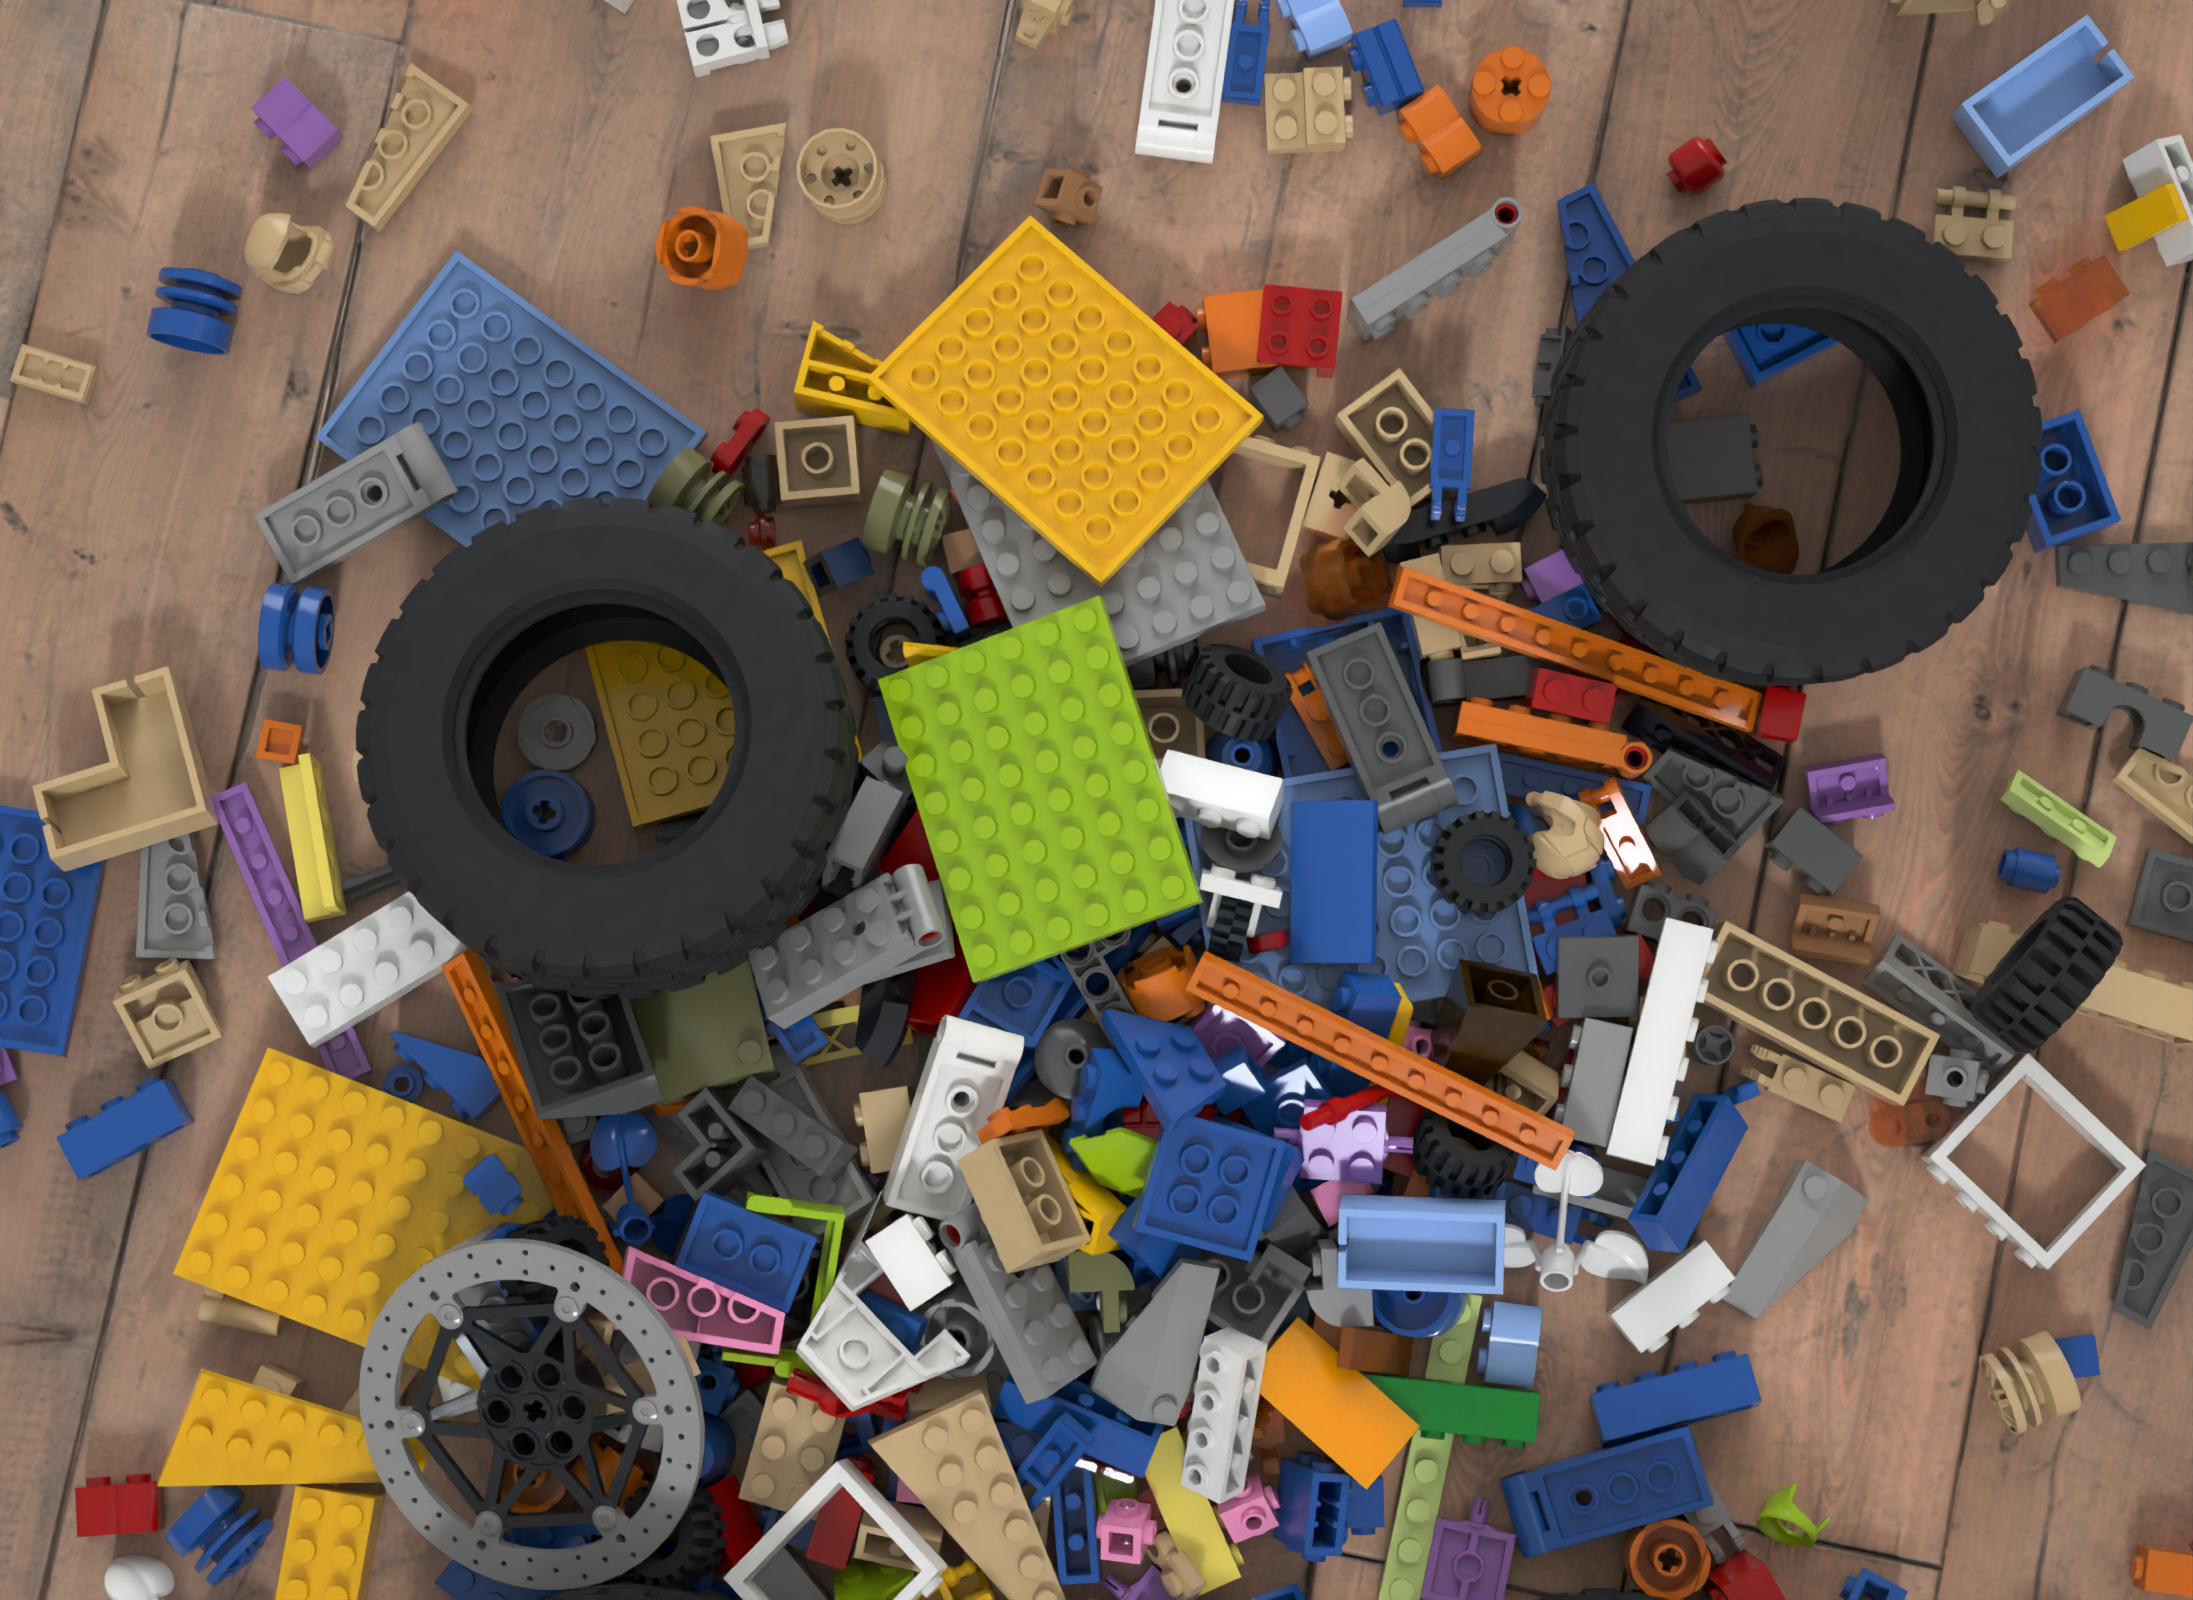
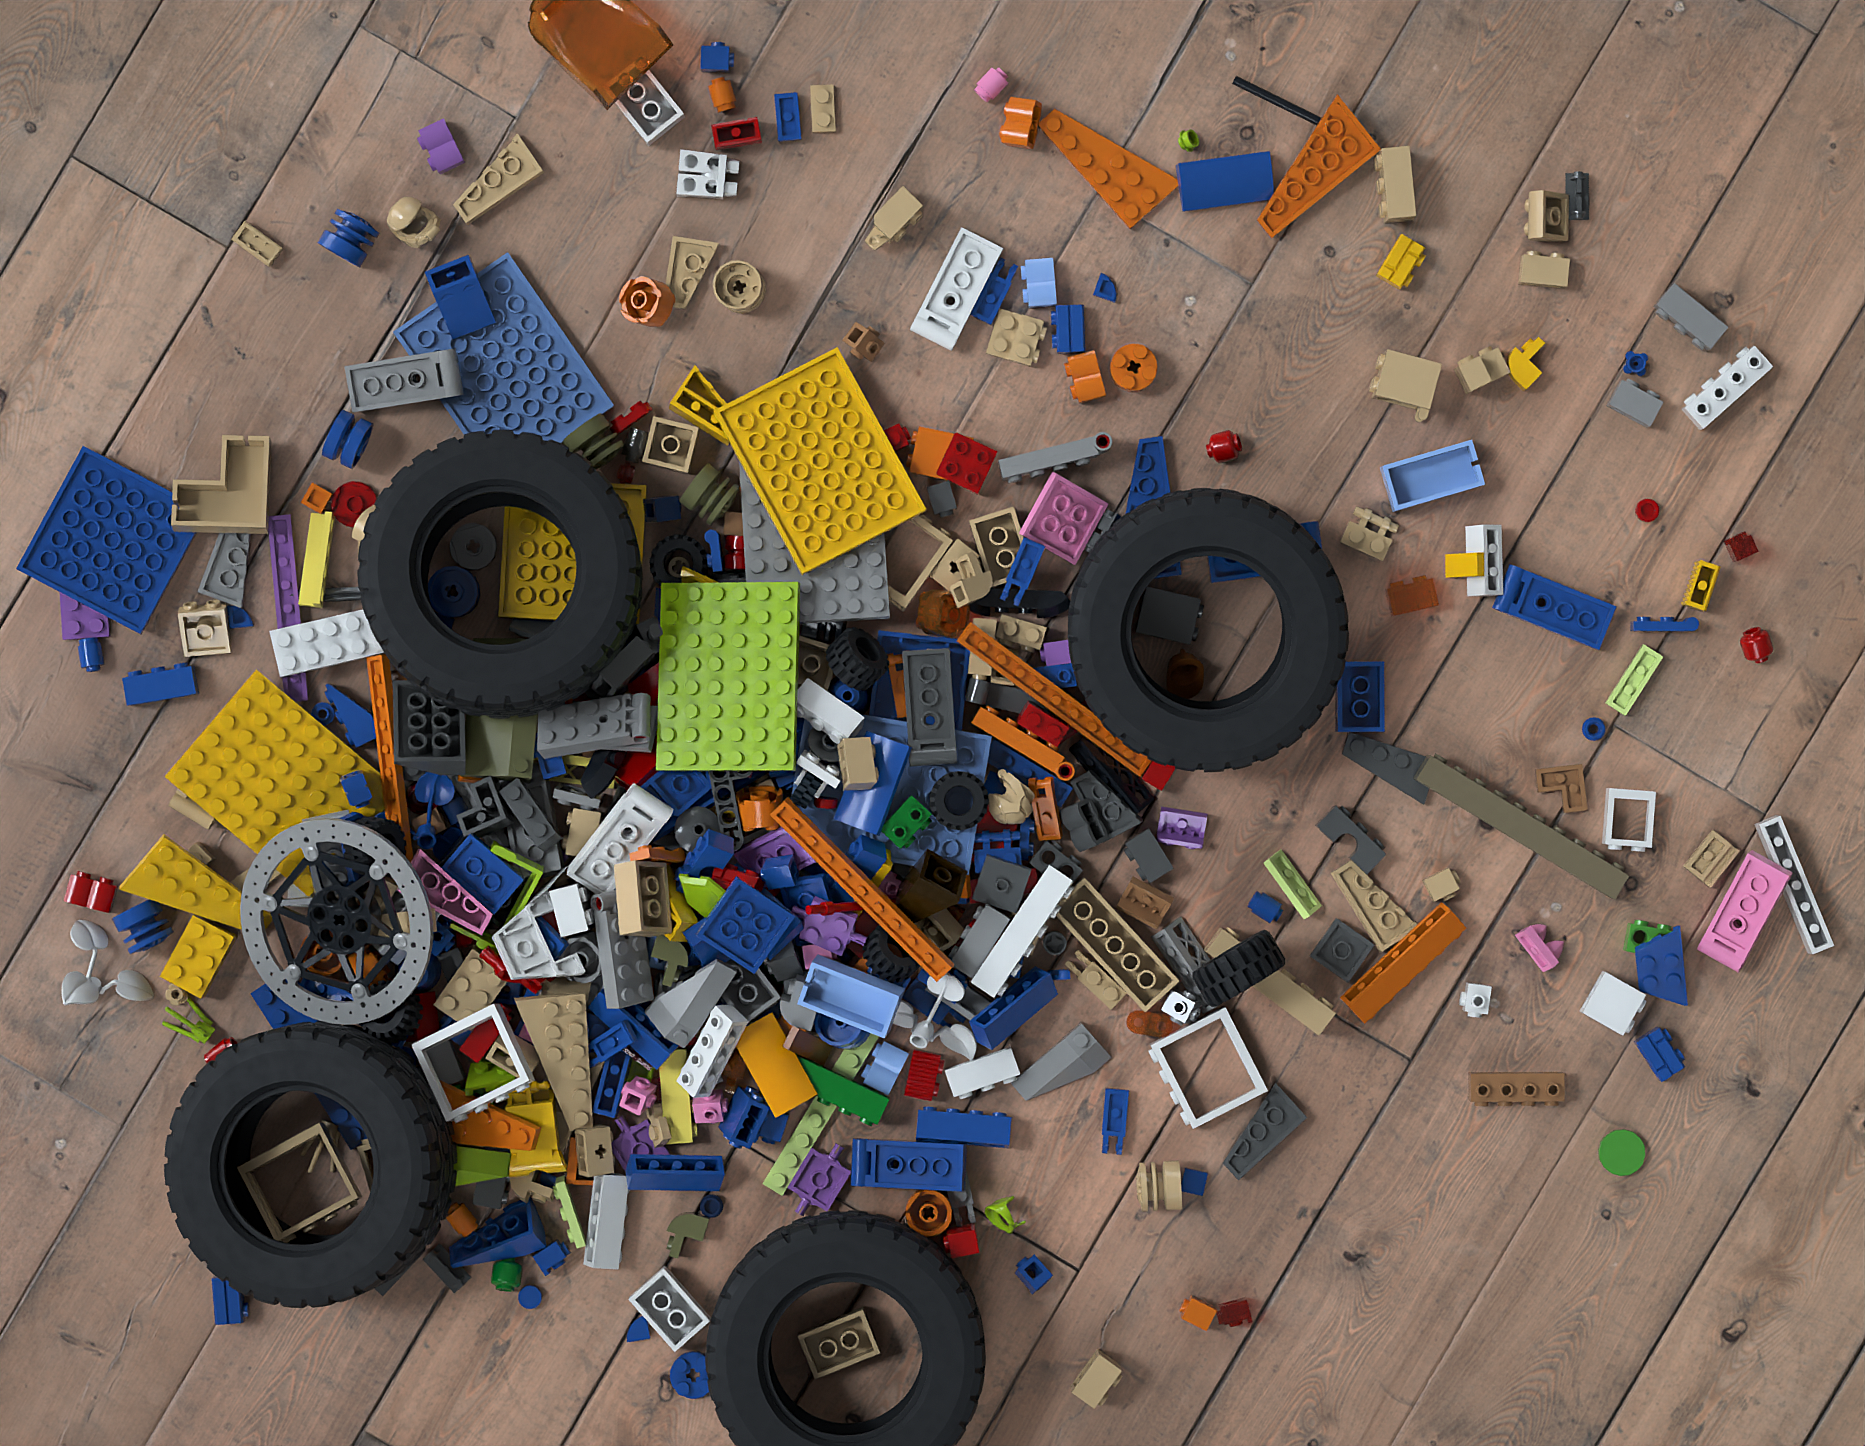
camera: 15 degrees right, 5 degrees up
(217, 977) = (238, 618): none -> blue tile
(332, 730) = (351, 501): none -> red tile
(402, 340) = (460, 297): none -> blue slope
(663, 1162) = (453, 808): none -> dark blue brick
(843, 1076) = (570, 794): none -> light grey plate
(1166, 1065) = (745, 852): blue wing -> none
(1284, 1268) = (772, 983): dark grey bracket -> none
(1299, 856) = (857, 763): none -> tan brick
(1410, 927) = (906, 822): none -> green brick
(1484, 360) = (1063, 518): none -> bright pink plate
(1576, 1334) = (922, 1075): none -> red brick
(1911, 1297) = (1114, 1117): none -> blue hinge

